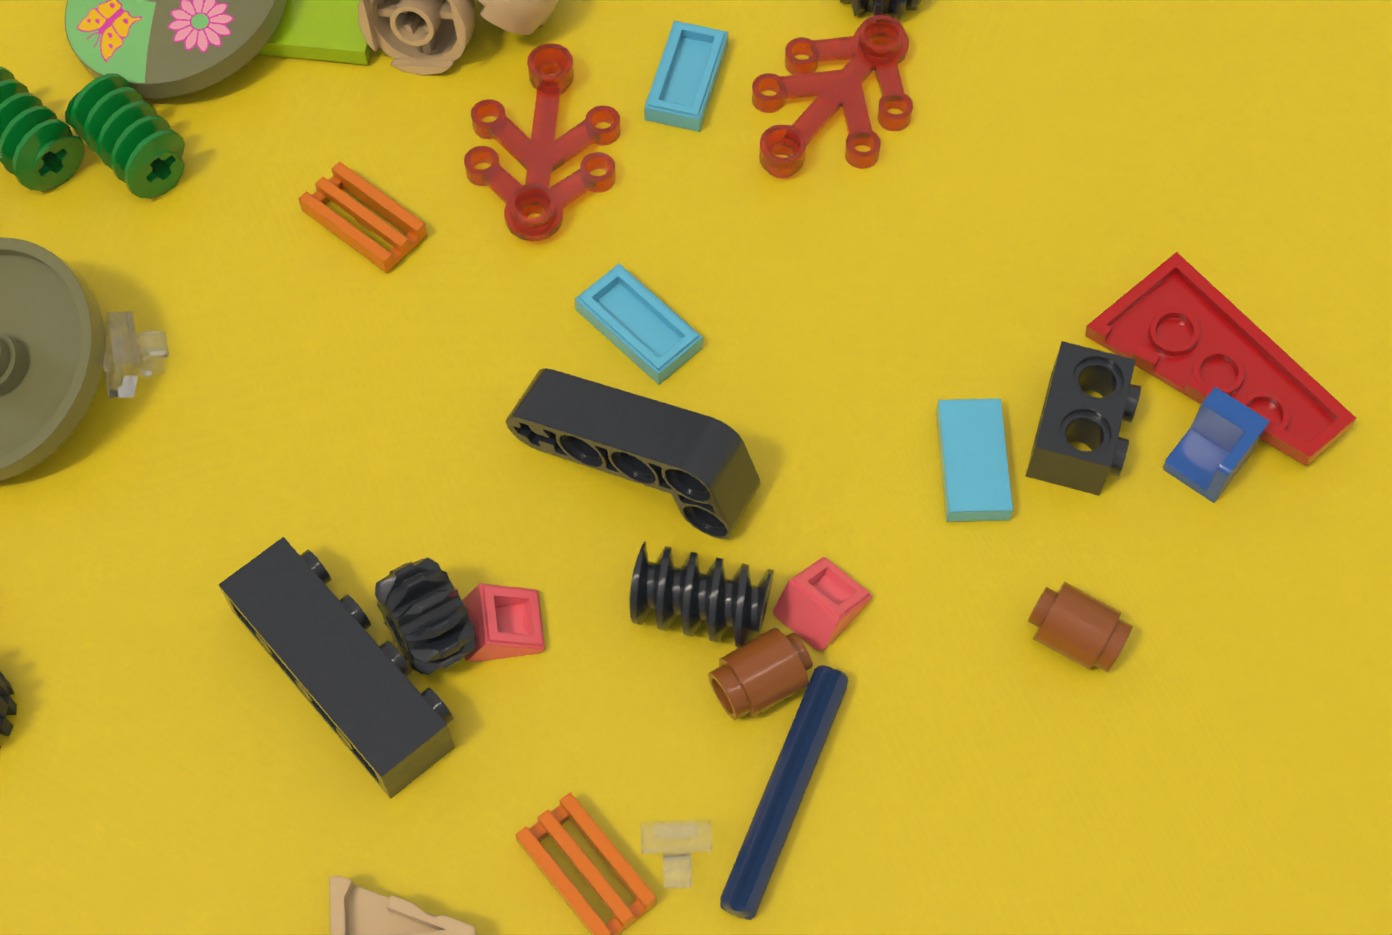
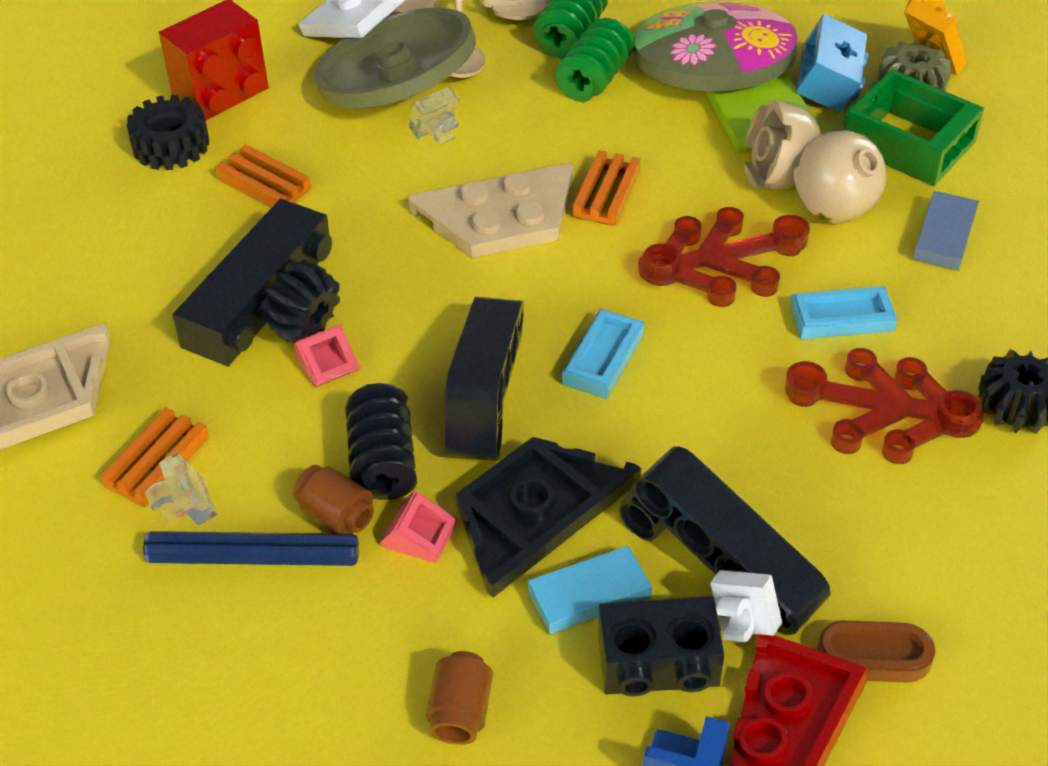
camera: 70 degrees right, 15 degrees down
(109, 598) = (268, 174): none -> orange tile
(340, 346) = (499, 211): none -> tan wing
(847, 471) = (534, 505): none -> black wing
(971, 305) = (722, 531): none -> black beam
(1073, 318) = (745, 604): none -> white tile
(1135, 240) = (886, 648): none -> dark orange tile

